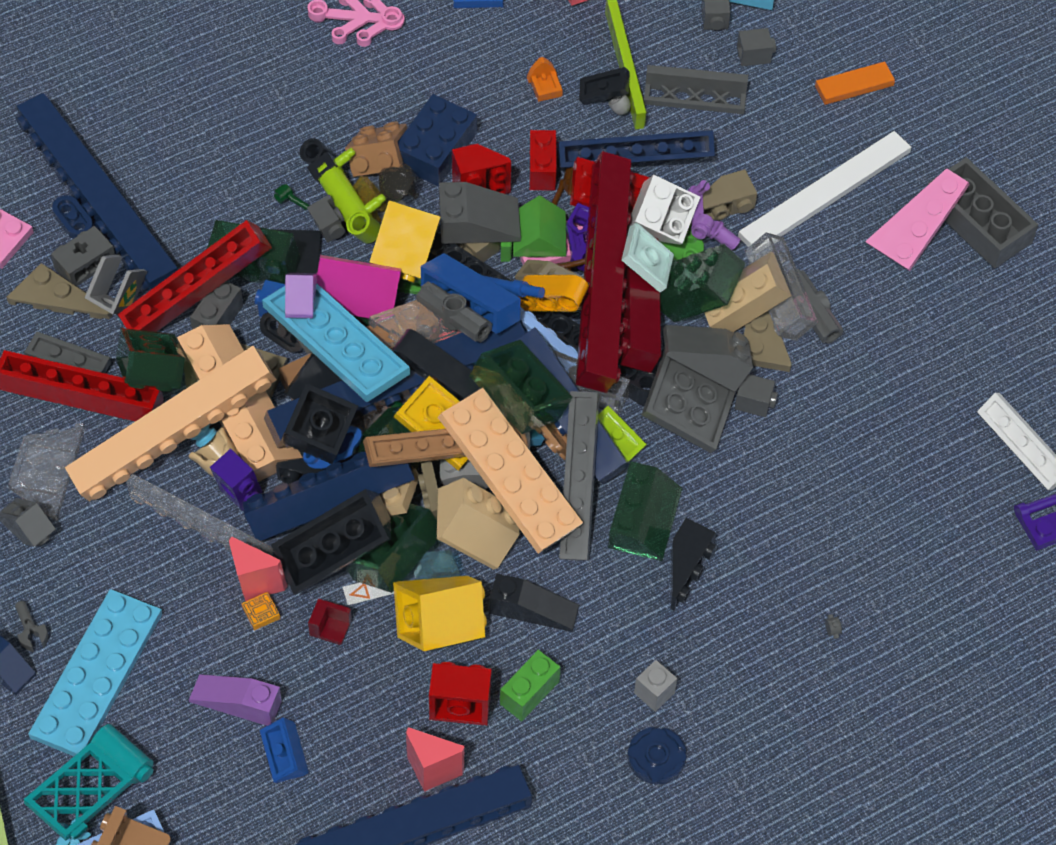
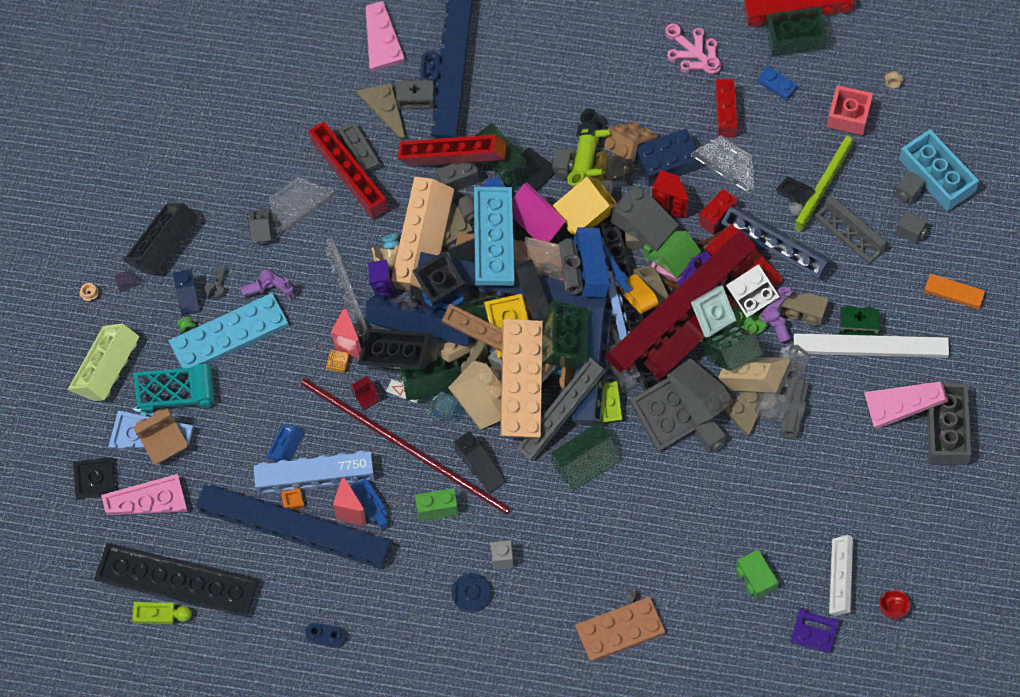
camera: 45 degrees right, 5 degrees up
(35, 699) = (186, 324): none -> bright green bush
(92, 577) = (267, 280): none -> medium lavender pin
(102, 281) = (408, 118): light grey piece -> none
(150, 359) = (391, 178): clear green brick -> none
(170, 424) = (371, 223): light nougat brick -> none
(238, 697) = (285, 399): medium lavender slope -> none
(266, 337) = (466, 208): none -> dark grey brick
(285, 193) = (556, 132): dark green hand -> none
(300, 295) = (494, 197): slope -> none
(351, 756) = (313, 472): none -> light blue brick
(351, 806) = (293, 499): none -> orange tile
(410, 650) = (405, 446): none -> dark red piece
(439, 611) = (422, 430): yellow slope -> none
(450, 50) = (725, 108): none -> red brick
(460, 693) = (393, 481): red brick -> none
(472, 747) = (372, 505): none -> blue hinge
(507, 102) = (728, 161): none -> clear wing
(544, 80) = (766, 163): orange tile -> none
(688, 552) = (587, 497): black slope -> none
(793, 173) = (867, 325): none -> dark green brick
(854, 671) = (620, 629): none -> nougat plate
(940, 503) = (756, 575): none -> bright green brick

